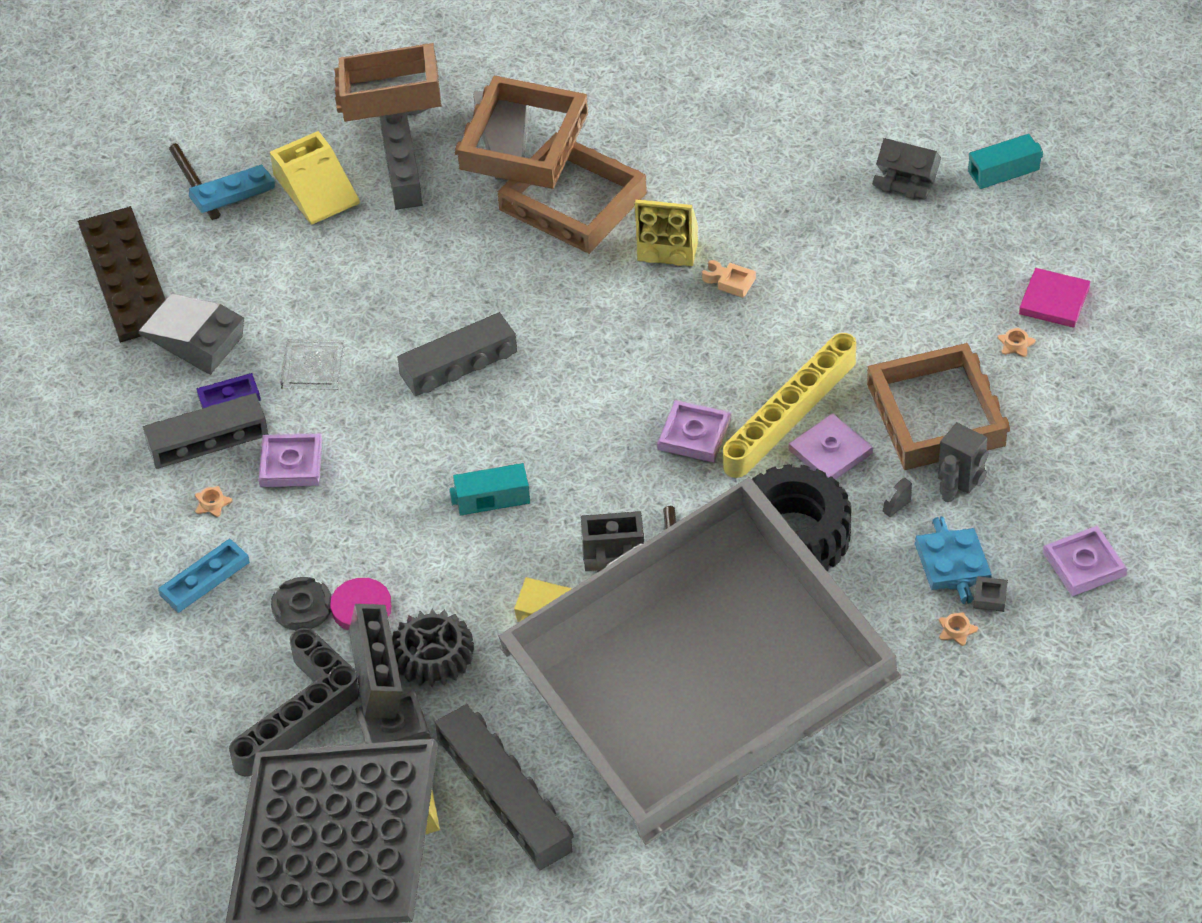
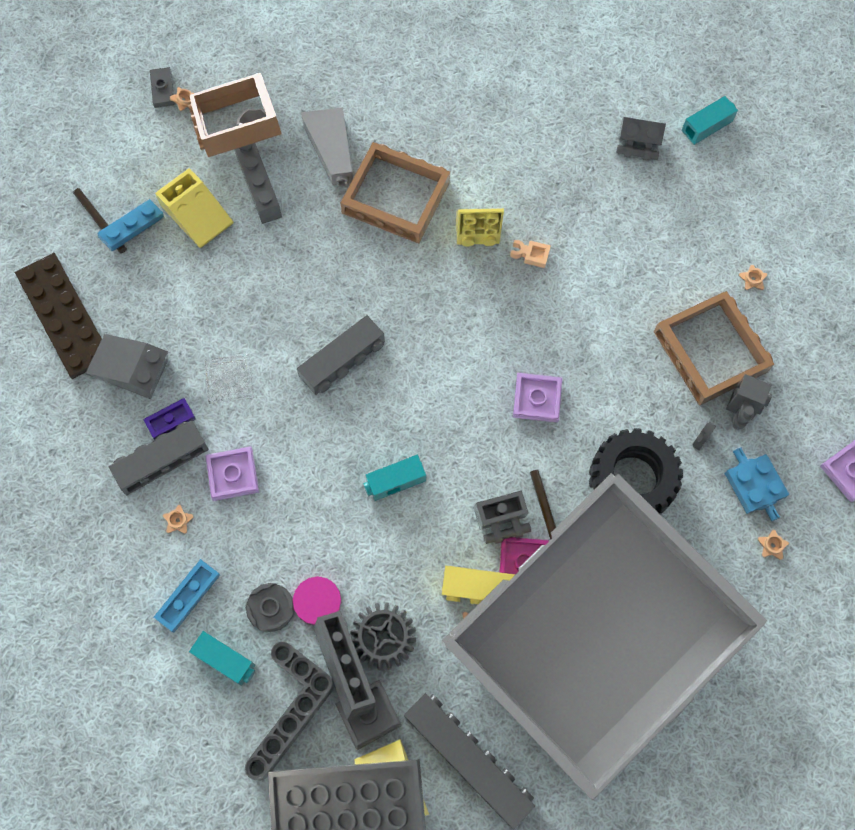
camera: 15 degrees left, 20 degrees up
(230, 642) = (223, 658): none -> teal brick
(307, 50) = (161, 87): none -> dark grey plate
(328, 63) = (177, 98): none -> light nougat plate
(514, 167) = (343, 181): medium nougat window -> none
(789, 405) = (599, 371): light yellow beam -> none
(831, 447) = (641, 396): lavender plate -> none
(990, 594) = (793, 512): dark grey plate -> none
(1054, 297) = (772, 234): dark pink tile -> none

